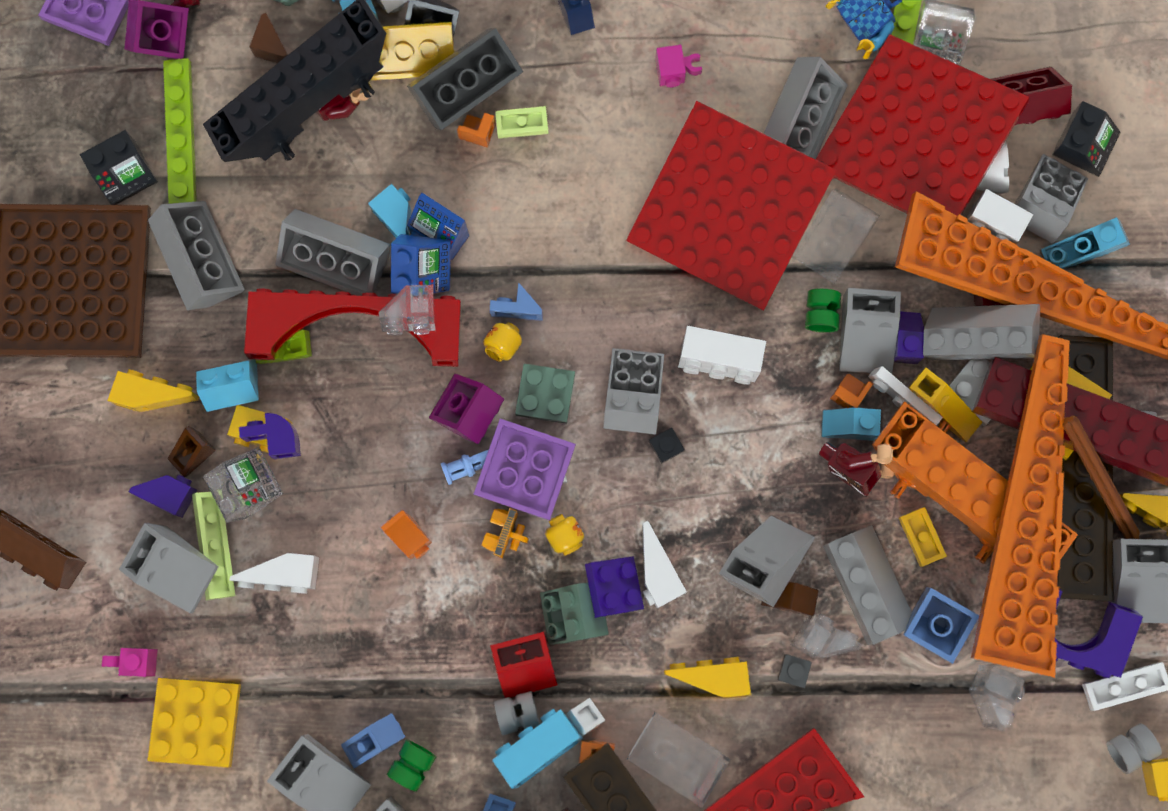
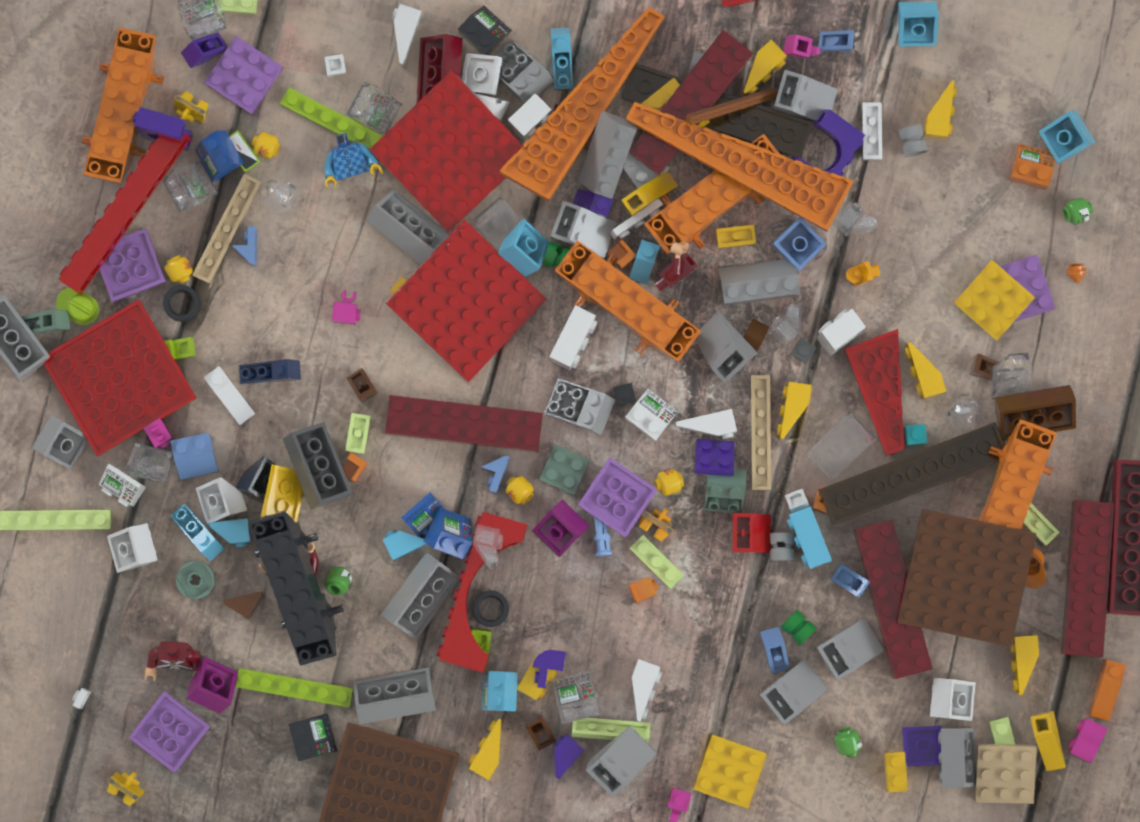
camera: 80 degrees left, 5 degrees up
(325, 145) = (337, 580): none -> bright green head
(329, 328) = (505, 608): none -> black tyre
(454, 547) = (656, 561): none -> yellowish green plate
(570, 248) = (463, 423): none -> dark red brick
(582, 111) = (362, 385): none -> reddish brown slope
(648, 487) = (651, 415): none -> white slope
(665, 642) = (760, 433): none -> tan plate
(791, 411) = (627, 302): none -> orange piece
(821, 261) = (524, 248): none -> medium azure slope
(837, 716) = (841, 331): none -> white brick
(926, 725) = (862, 273): none -> light orange hips
(1034, 148) = (482, 73): none -> white plate
(1058, 43) = (406, 25): none -> white slope

